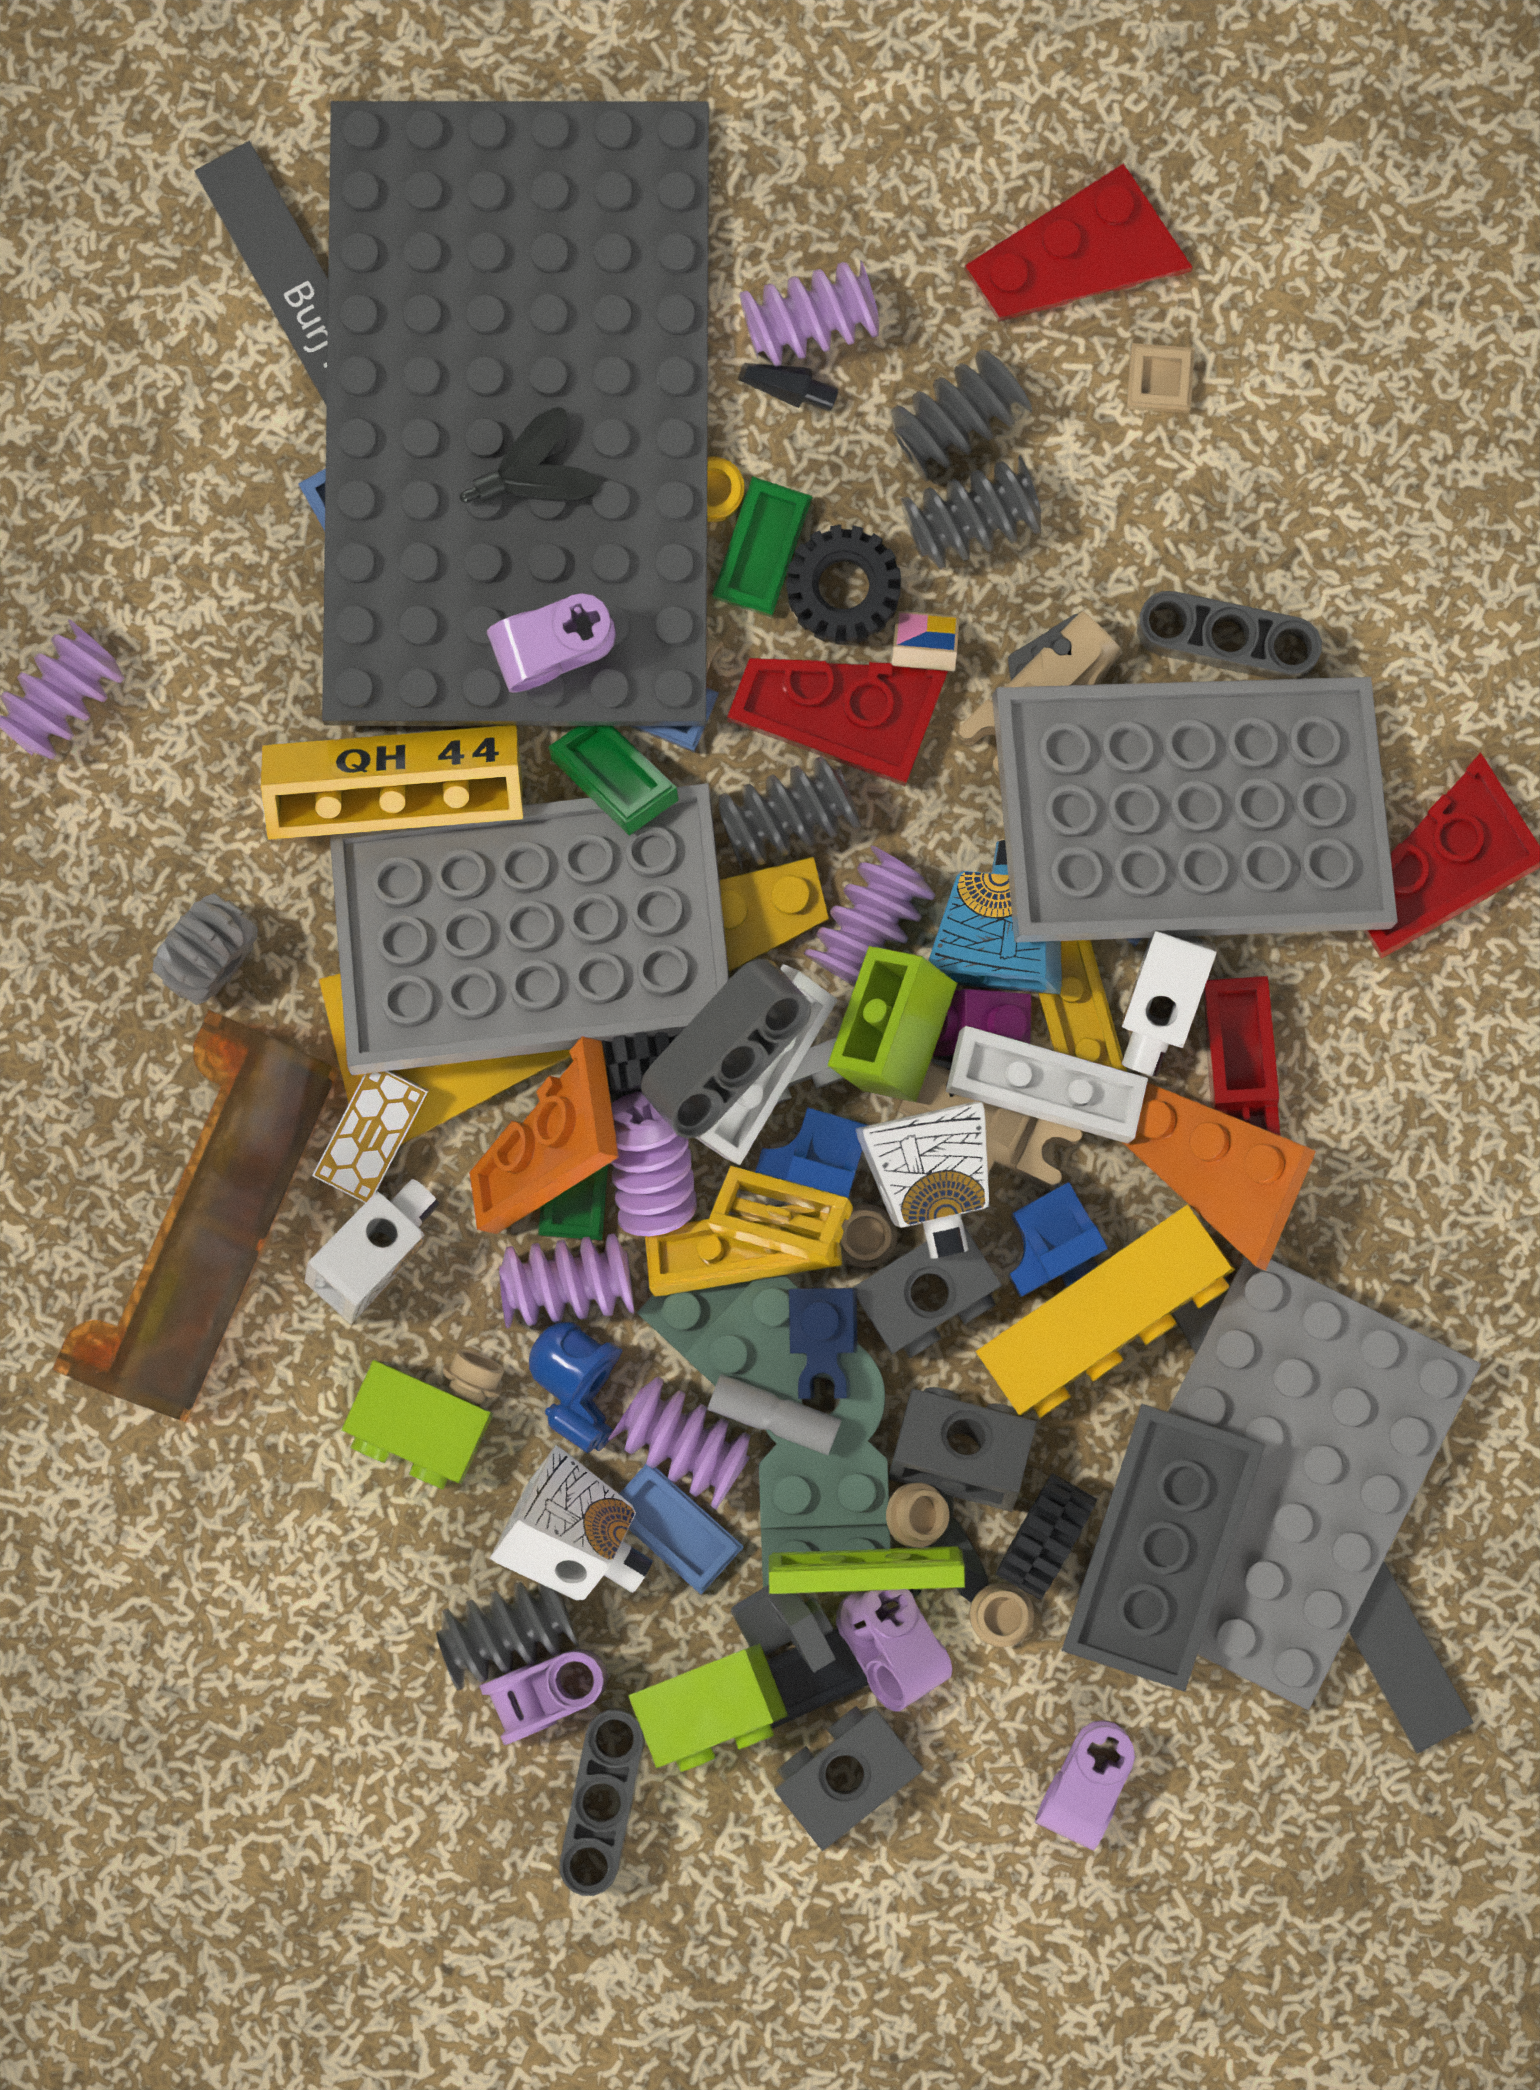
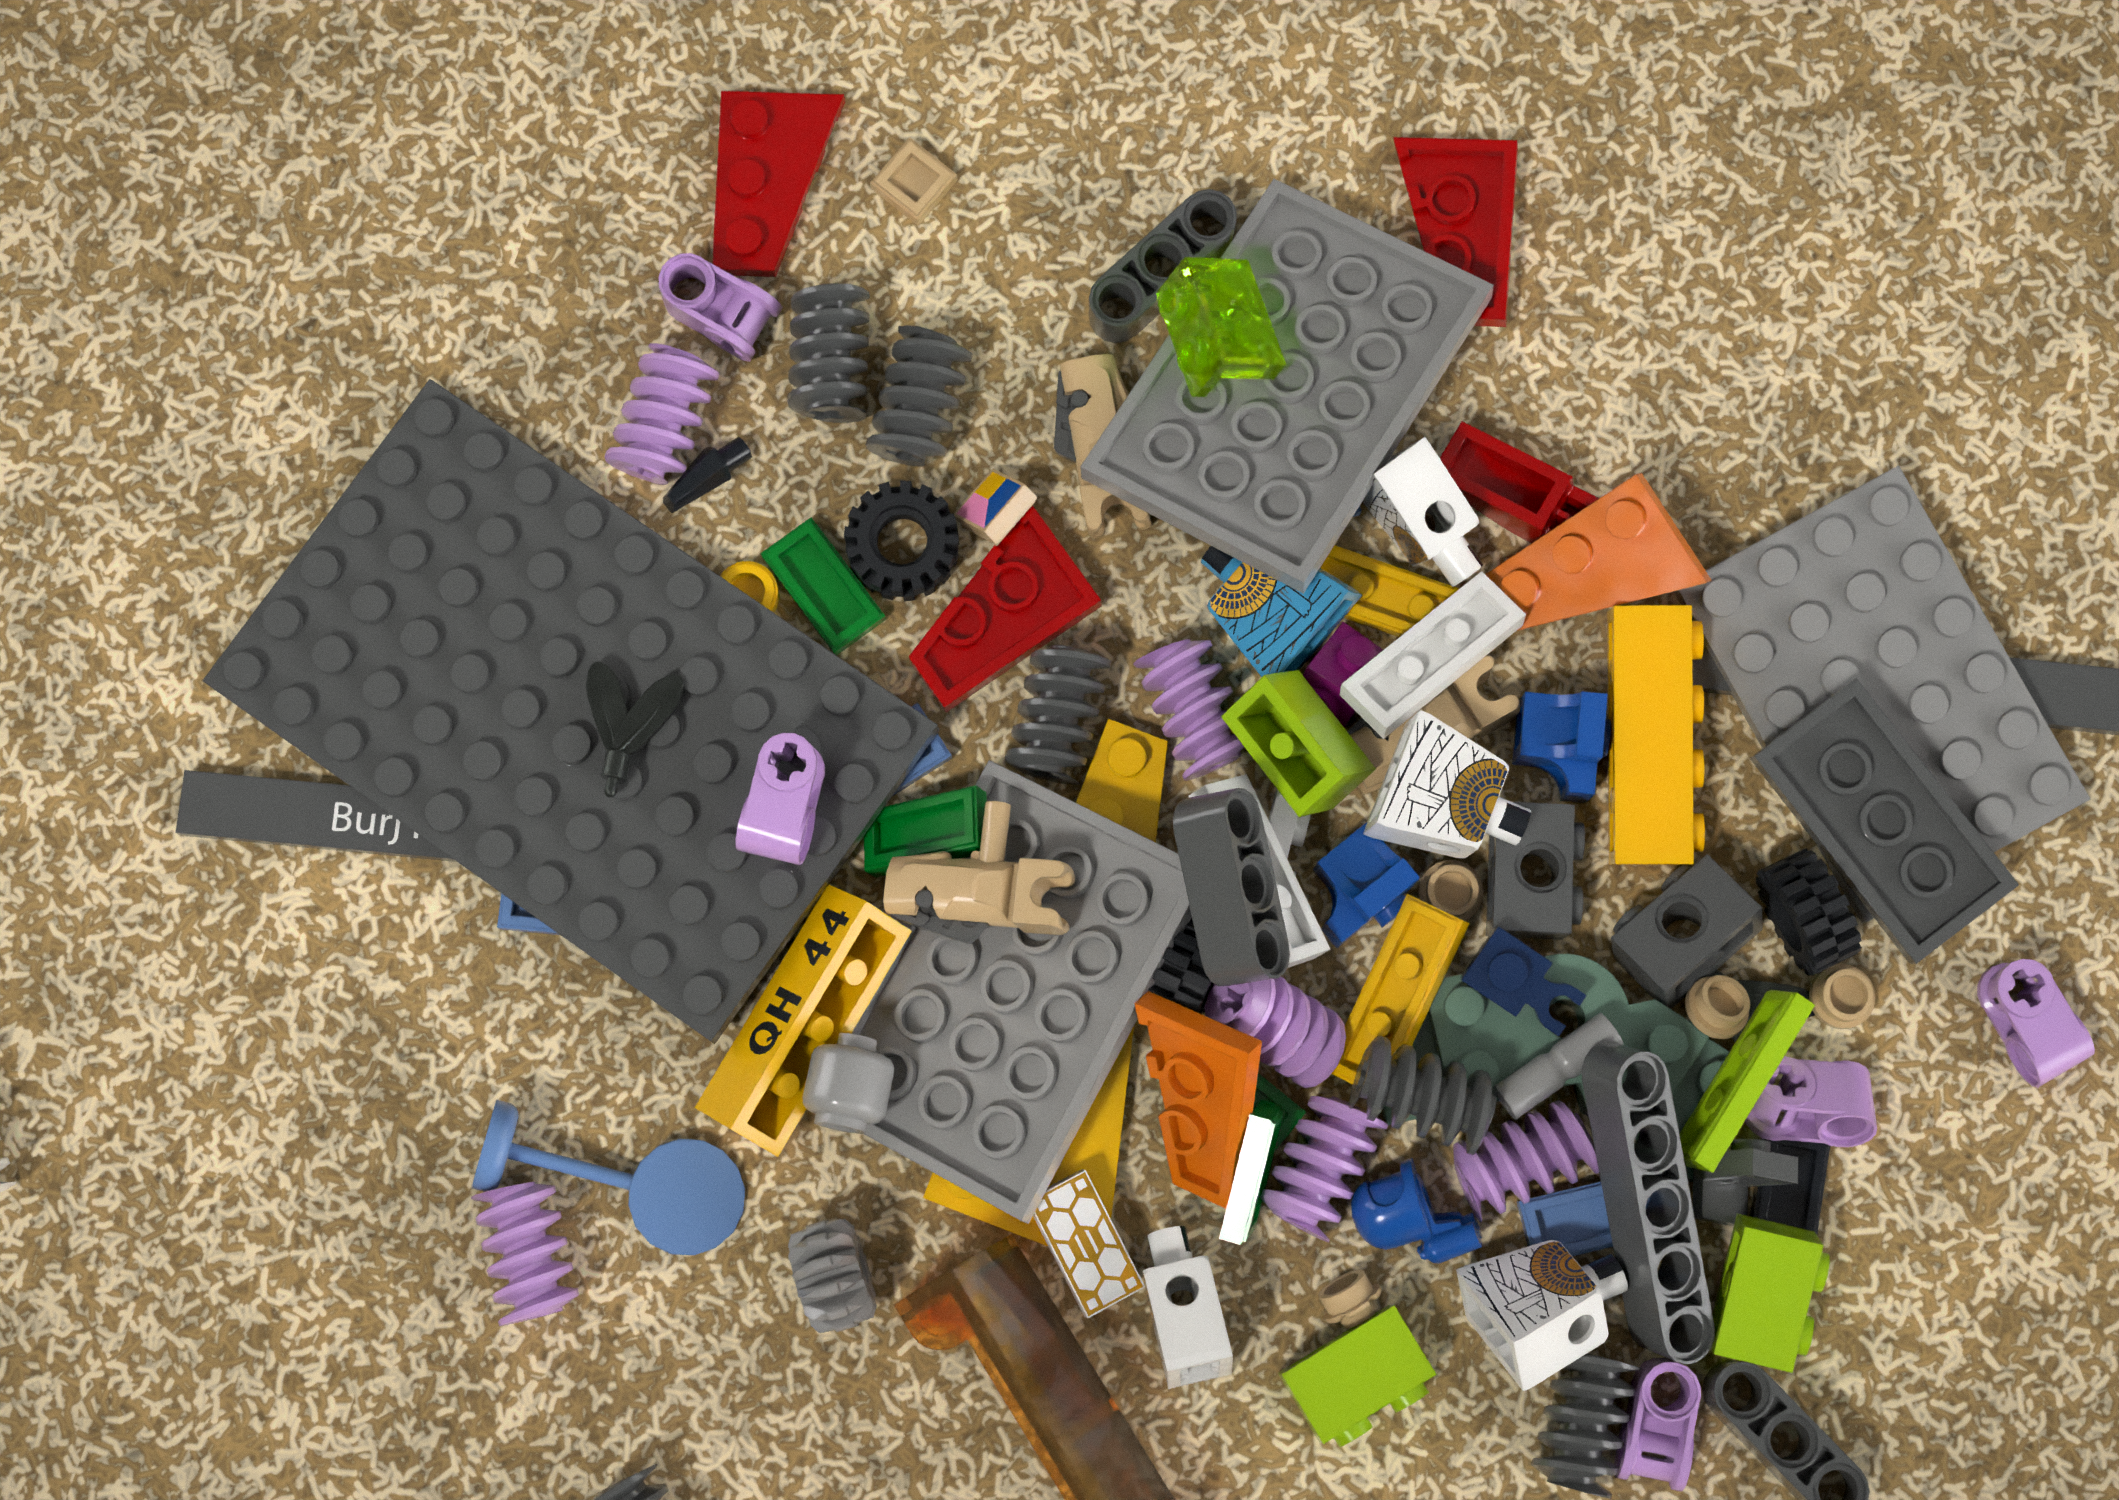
camera: 60 degrees left, 5 degrees down
(188, 783) = (680, 1196): none -> medium blue piece
(362, 854) = (848, 1084): none -> light grey head
(519, 1227) = (1252, 1172): none -> tile
(582, 844) = (970, 894): none -> tan piece
(673, 1320) = (1425, 1092): none -> dark grey piece
(715, 1532) = (1628, 1179): none -> dark grey beam
(816, 1250) = (1410, 964): yellow tile -> none
(831, 1812) = (1924, 1247): dark grey brick -> none
(936, 303) = (727, 311): none -> lavender piece
(1199, 717) = (1218, 323): none -> clear neon green bracket

